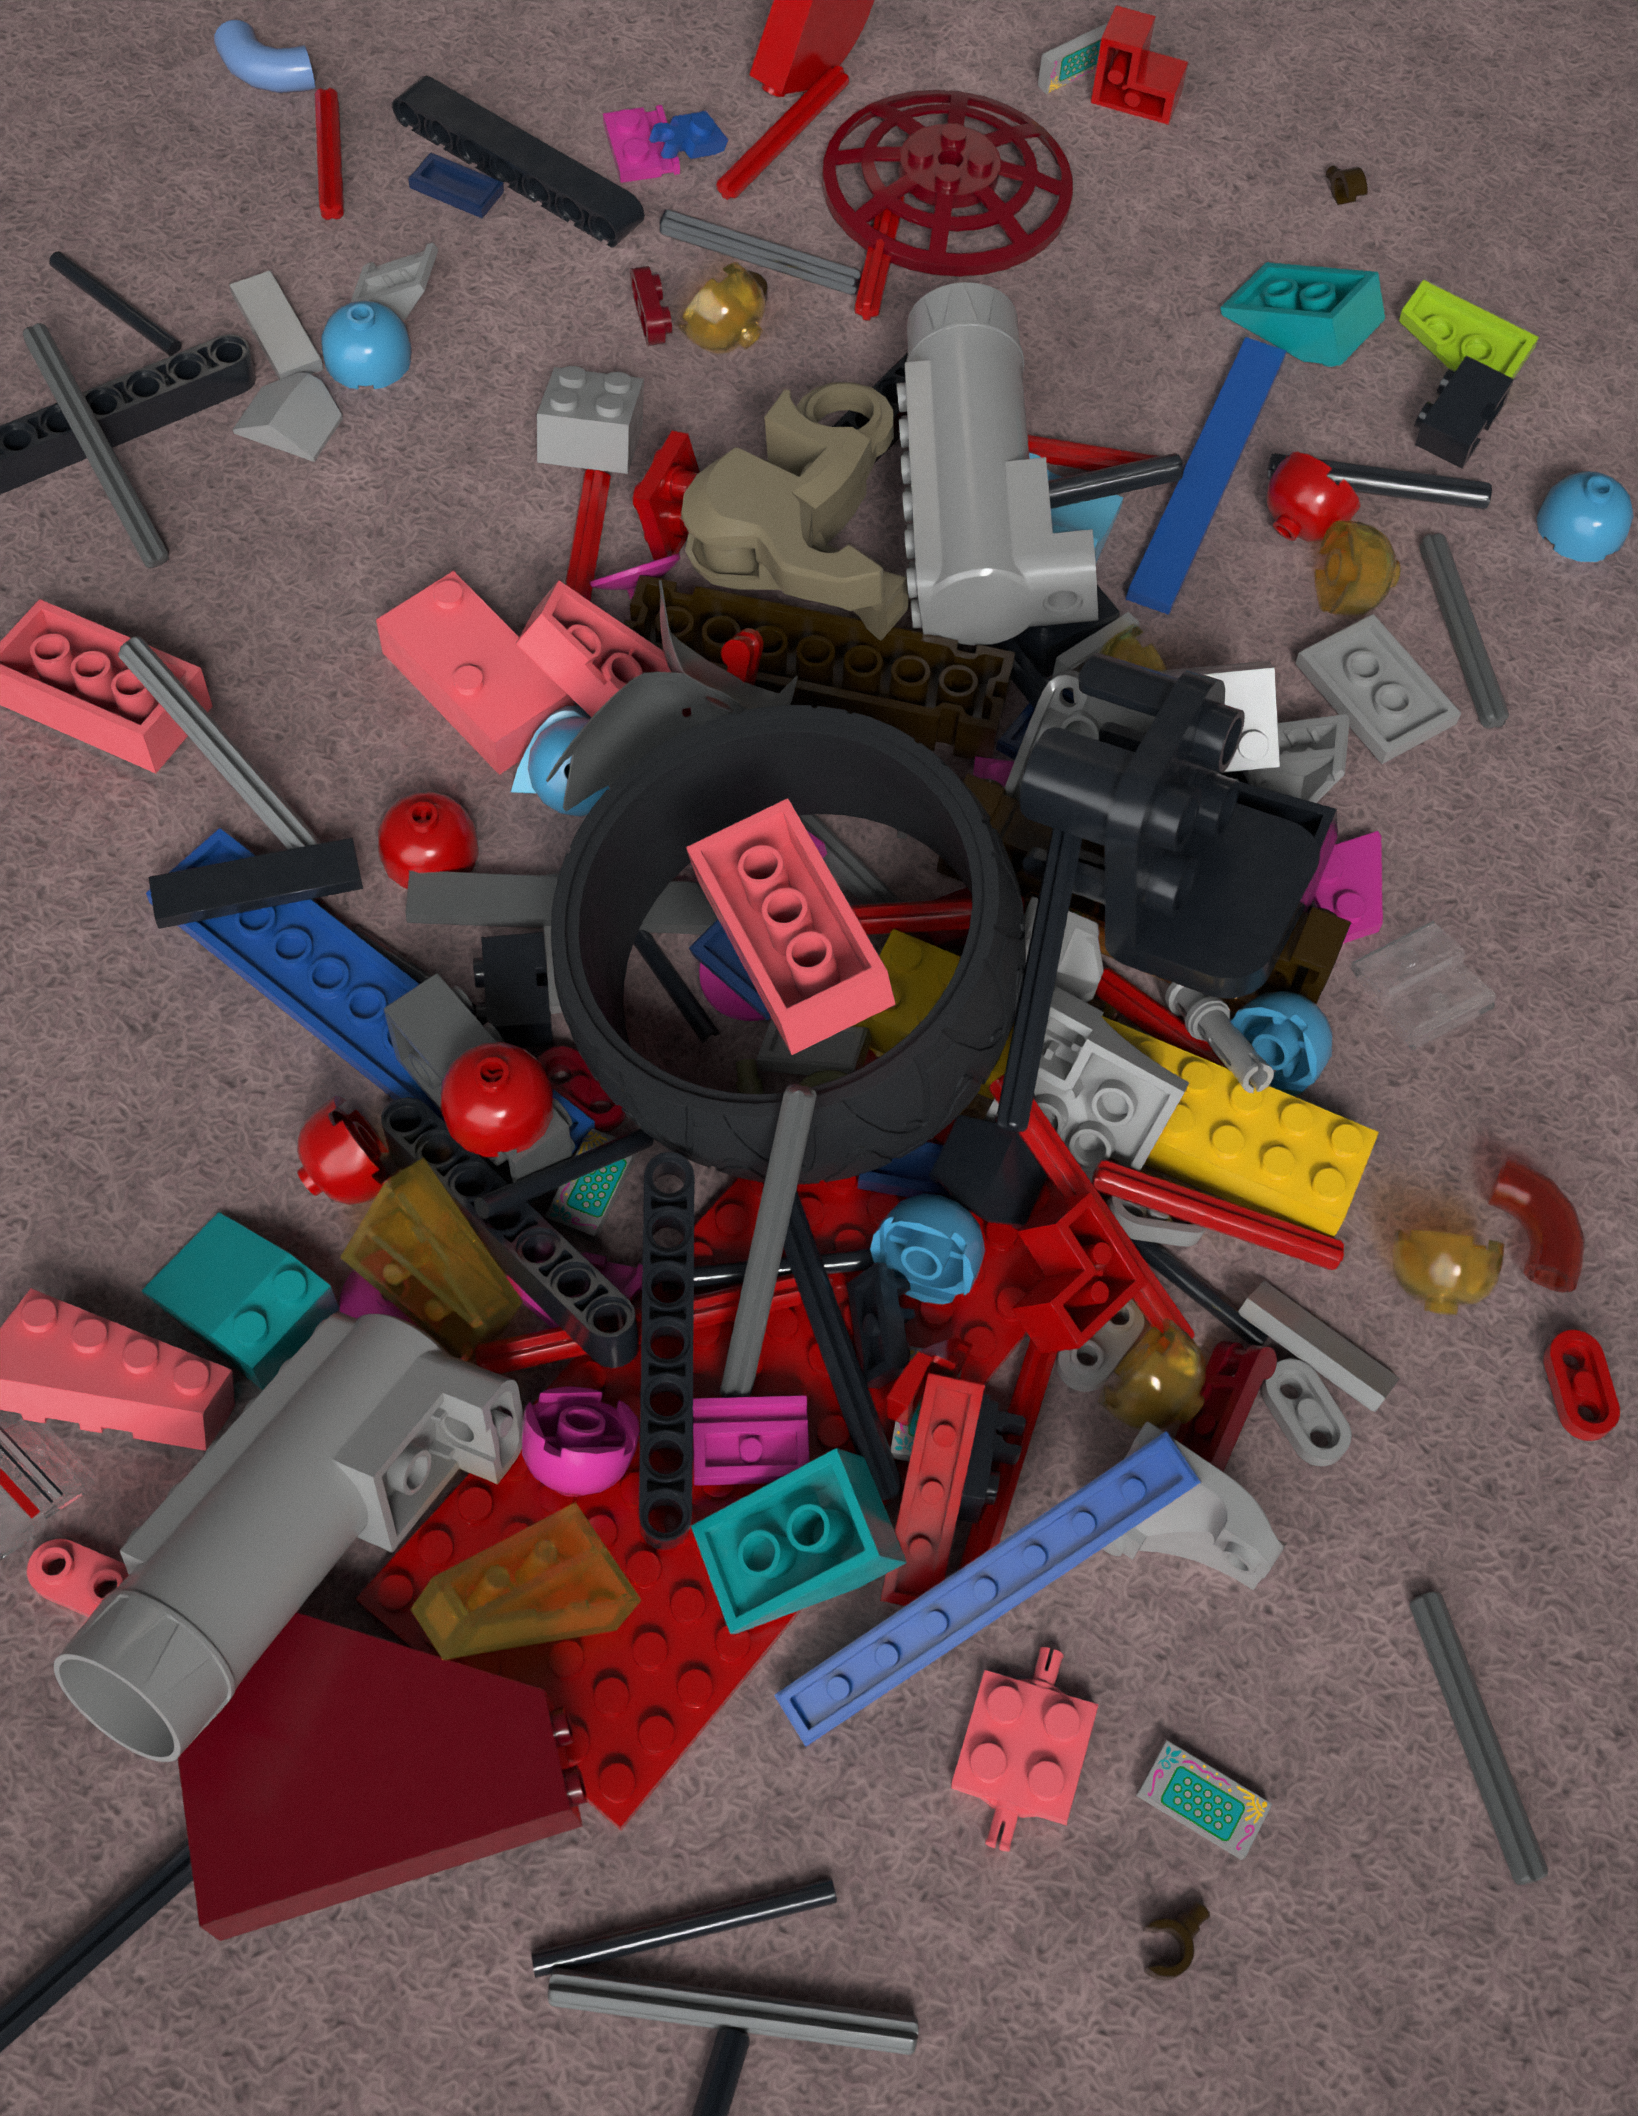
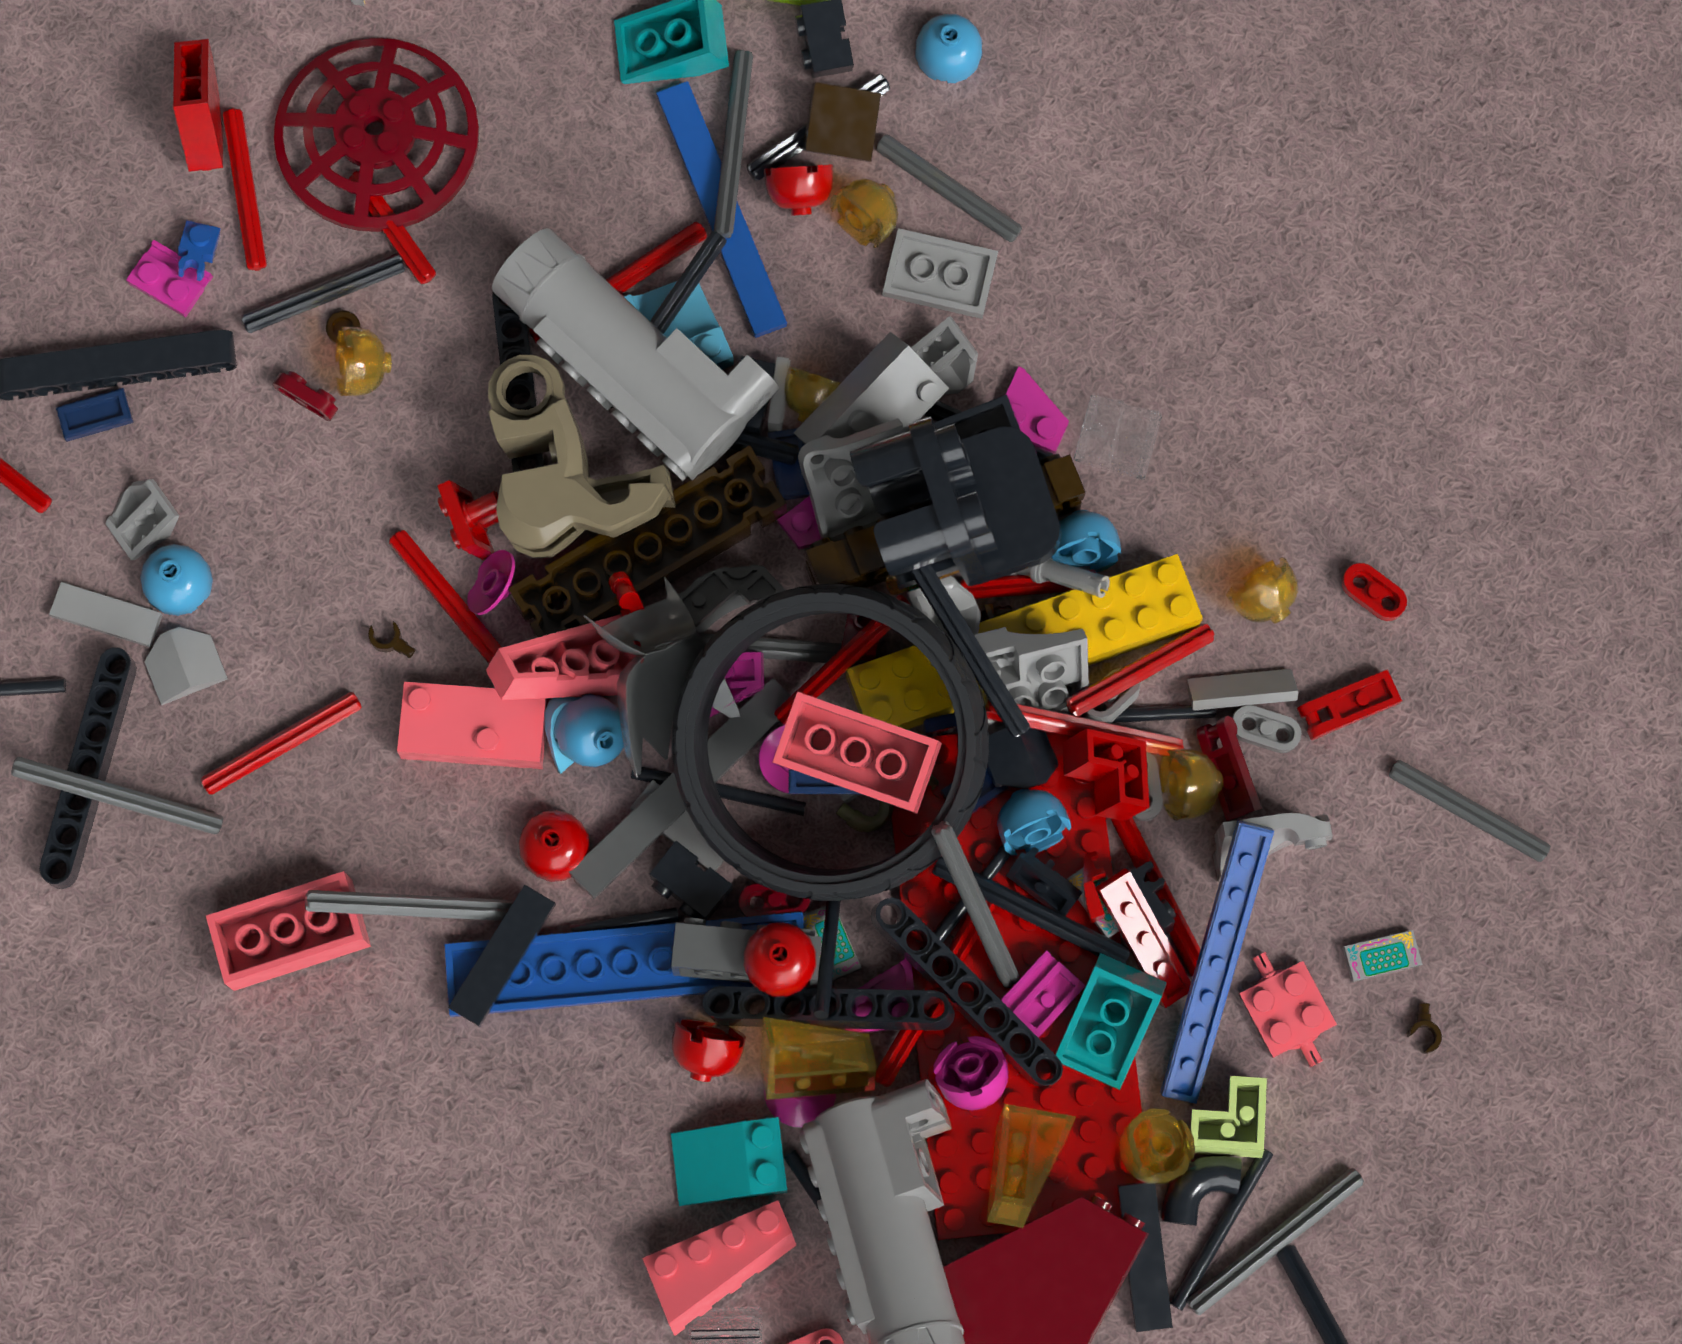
camera: 45 degrees left, 15 degrees up
(293, 544) = (280, 743): none -> red axle
(491, 555) = (397, 644): none -> dark brown piece
(556, 1865) = (1148, 1271): none -> black tile
(590, 419) = (365, 510): light grey brick -> none
(697, 1730) = (1156, 1147): none -> clear yellow cylinder
(710, 1835) = (1201, 1178): none -> black cylinder
(820, 1819) = (1239, 1129): none -> yellowish green brick
(1276, 426) = (733, 143): none -> dark grey axle
(1408, 486) = (841, 122): none -> dark brown tile
(1436, 1478) = (1350, 704): none -> red plate
(1549, 1221) = (1287, 517): clear red cylinder -> none

